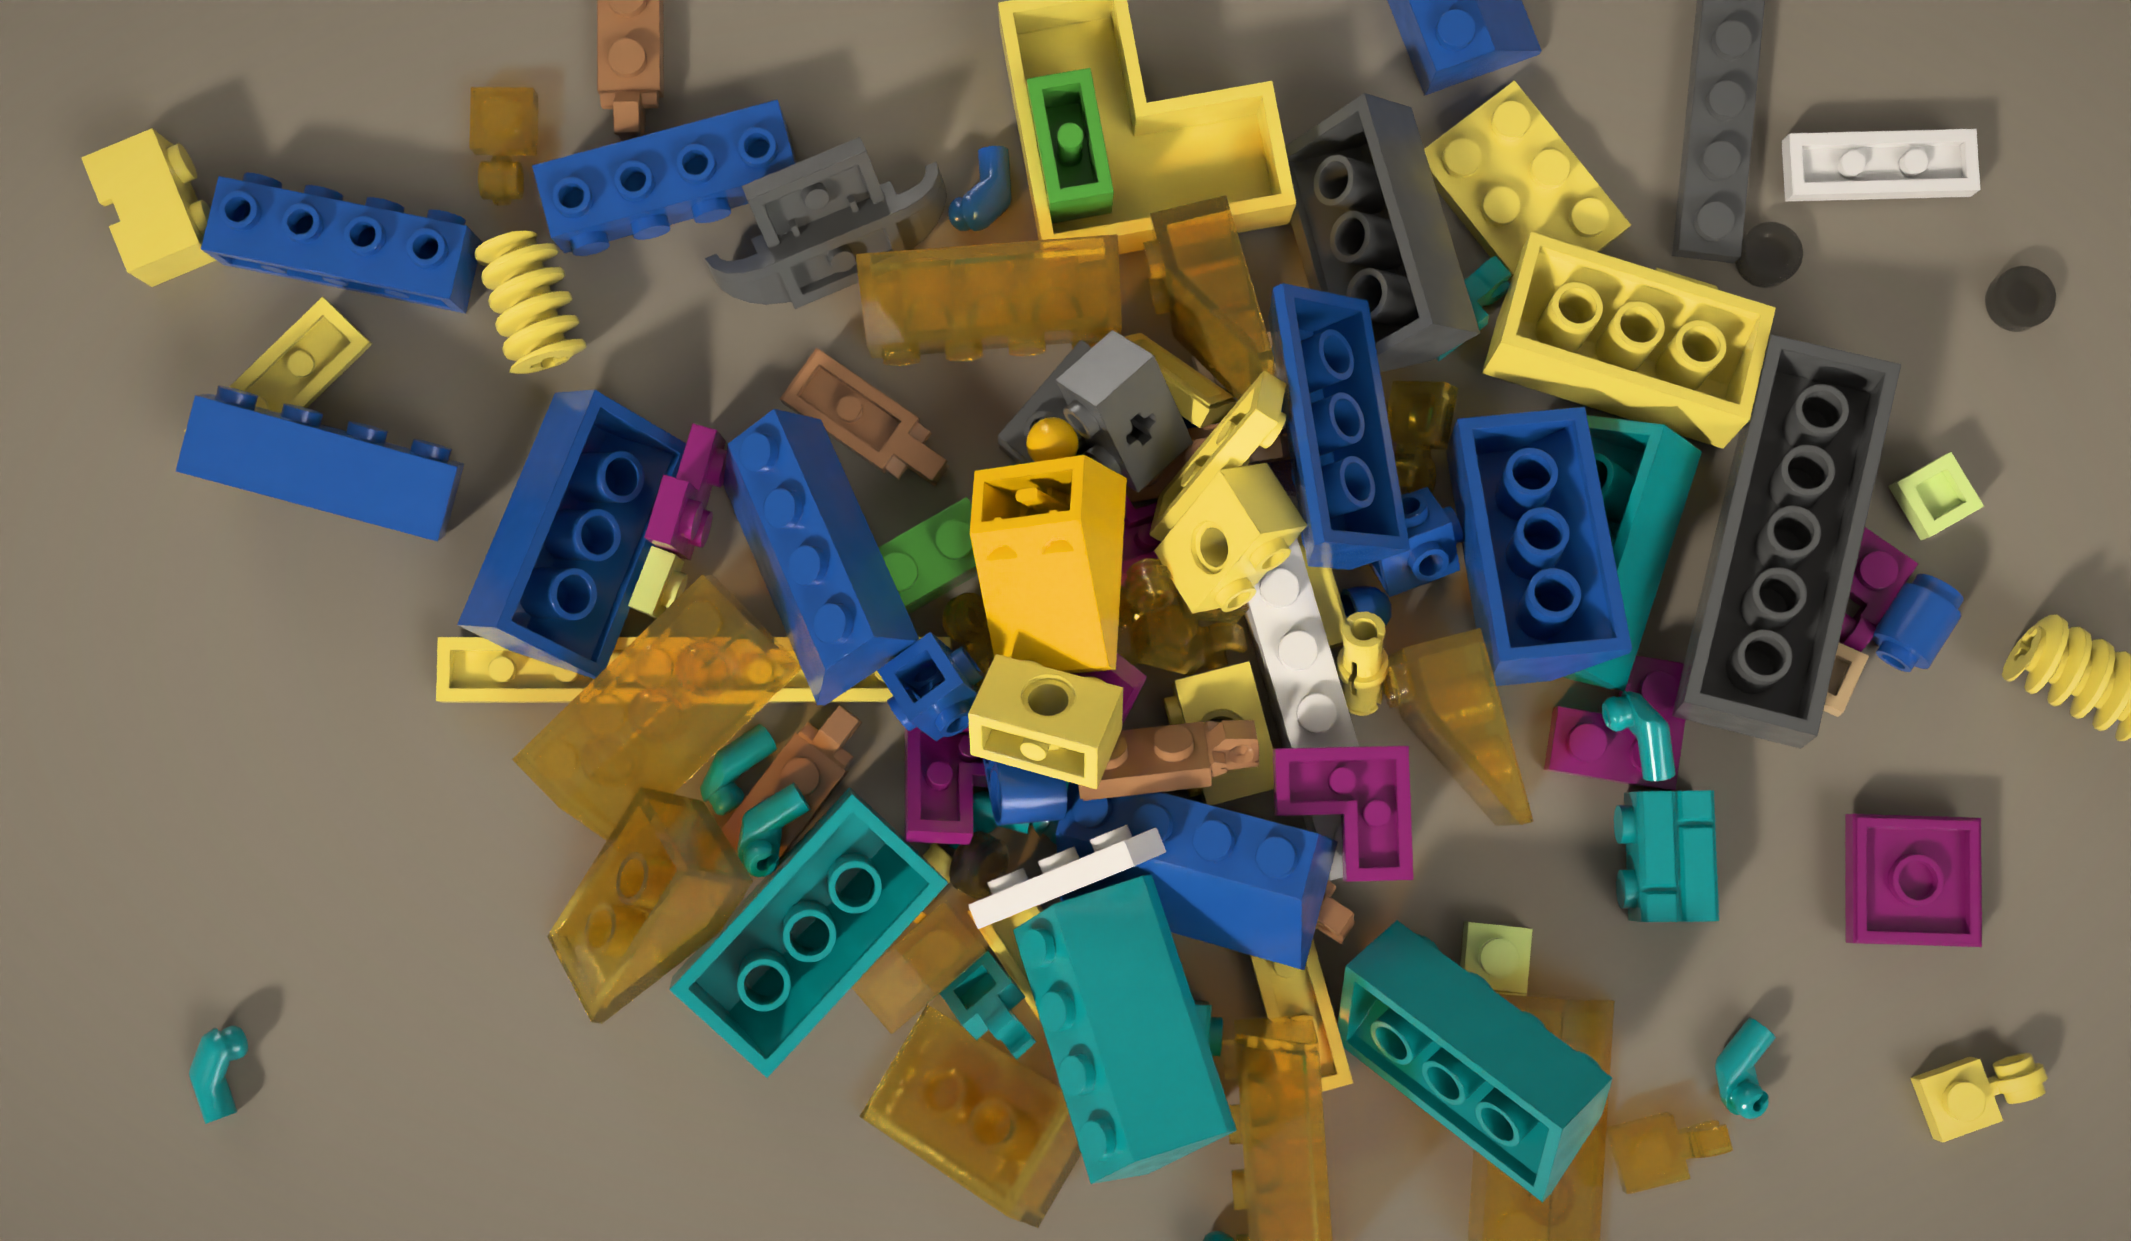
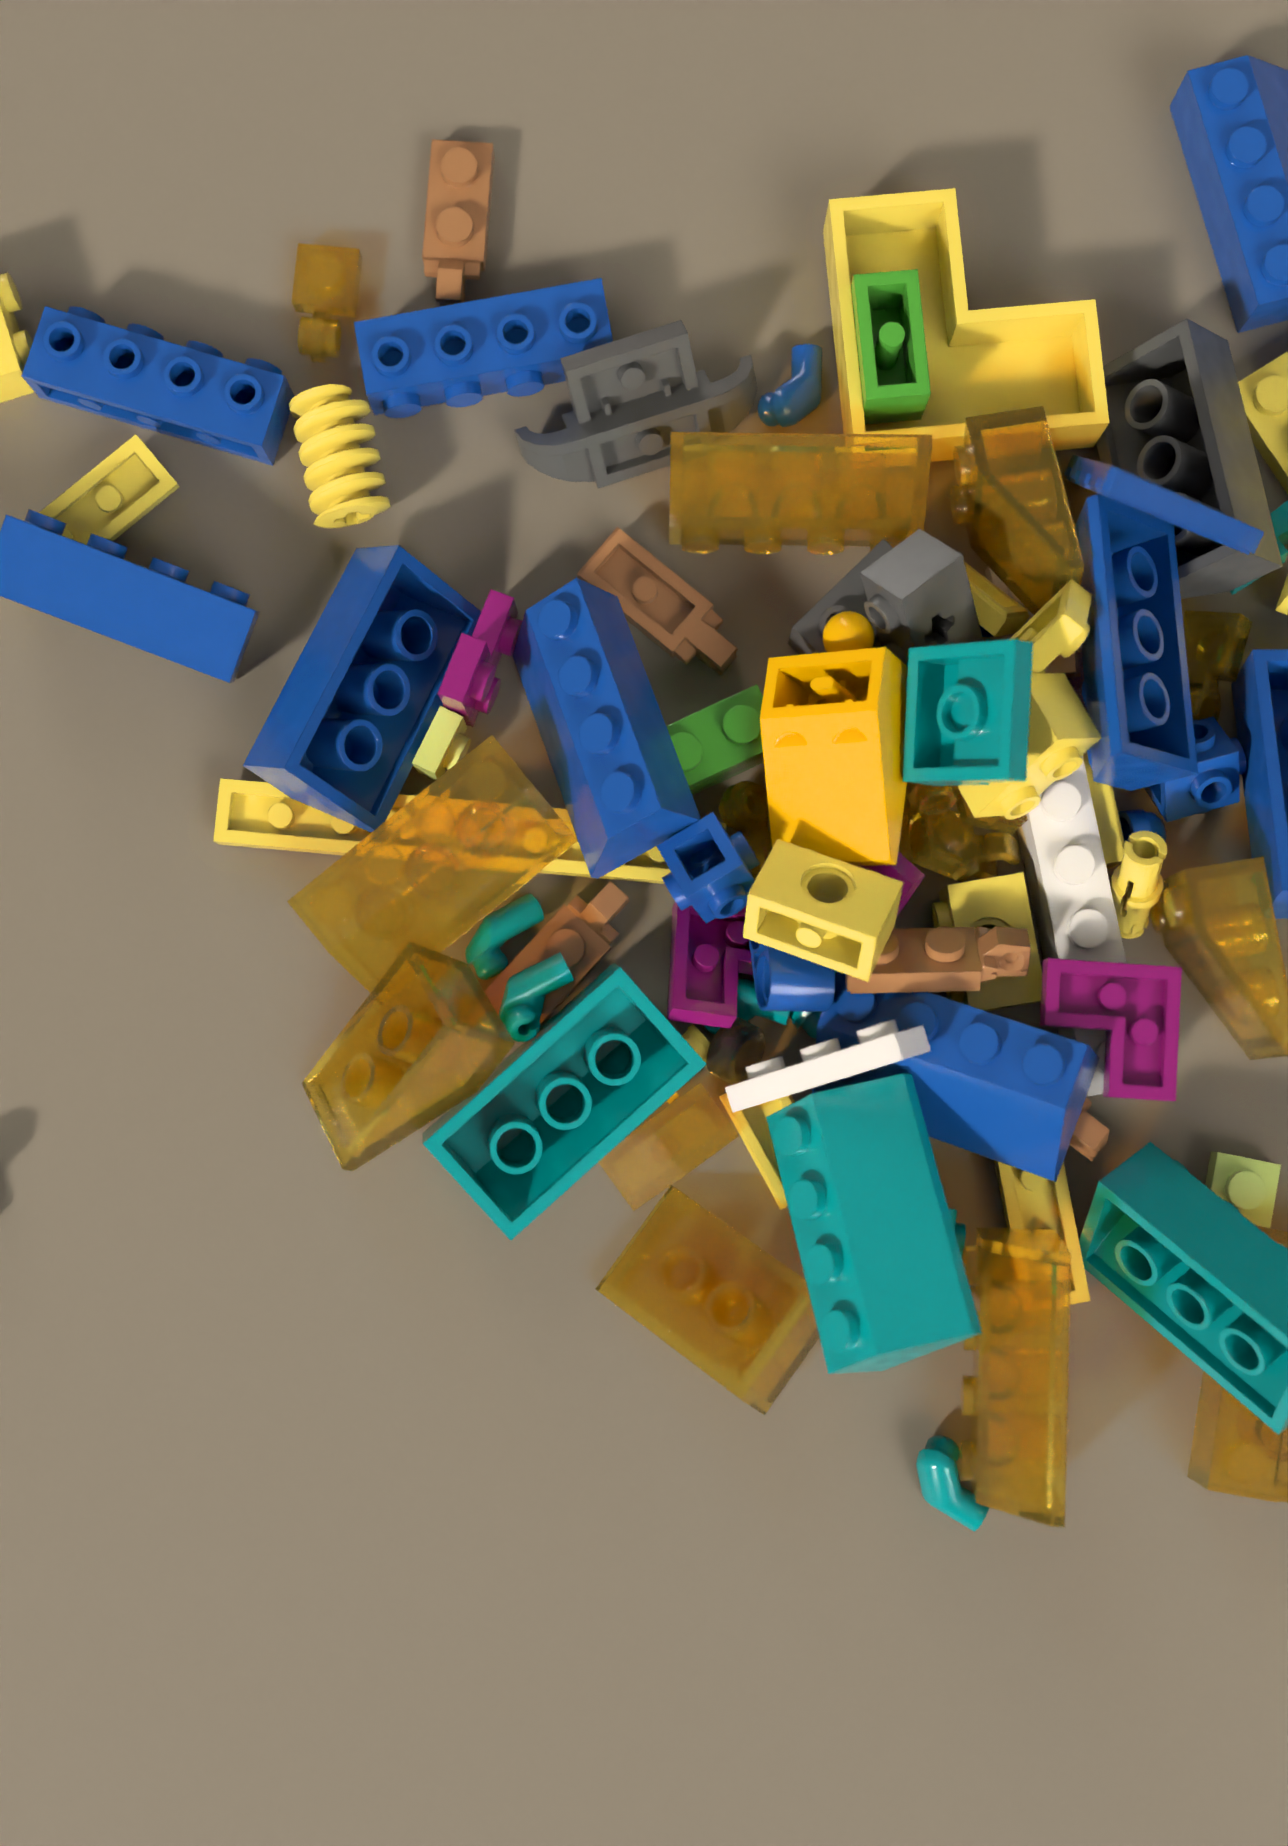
camera: 10 degrees right, 0 degrees up
(984, 1002) = (732, 1184): teal plate -> none
(1170, 514) = (968, 713): none -> teal plate
(1323, 281) = (1163, 504): none -> blue tile

